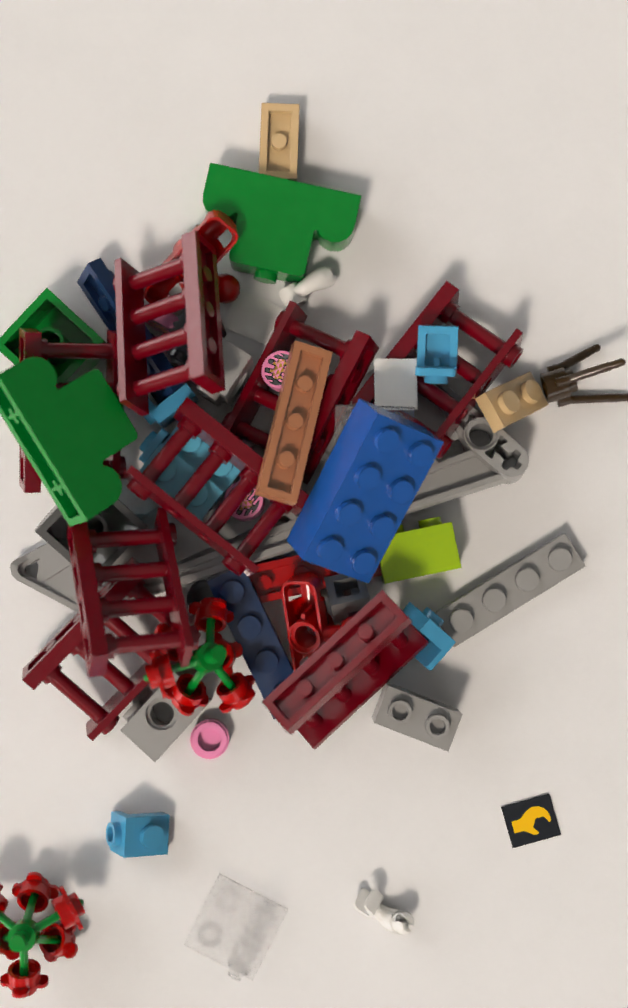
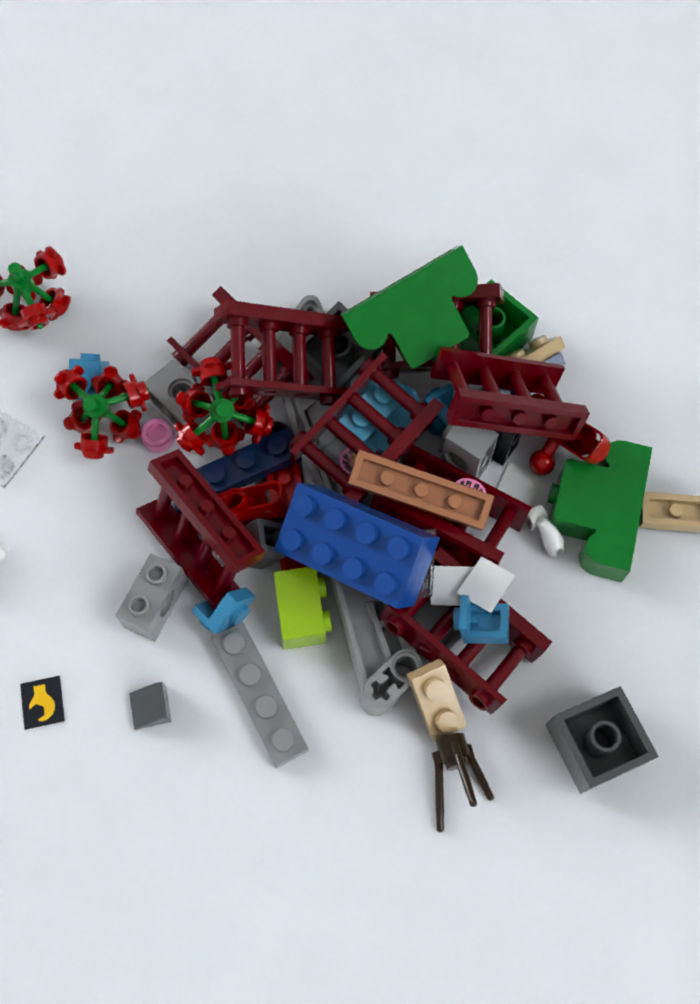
camera: 90 degrees right, 20 degrees down
(88, 297) = (539, 349): none -> tan plate
(197, 811) = (88, 414): none -> red plant
(396, 349) = (486, 584): none -> white sticker
(530, 703) = (150, 706): none -> dark grey slope
(542, 234) = (601, 739): none -> dark grey brick

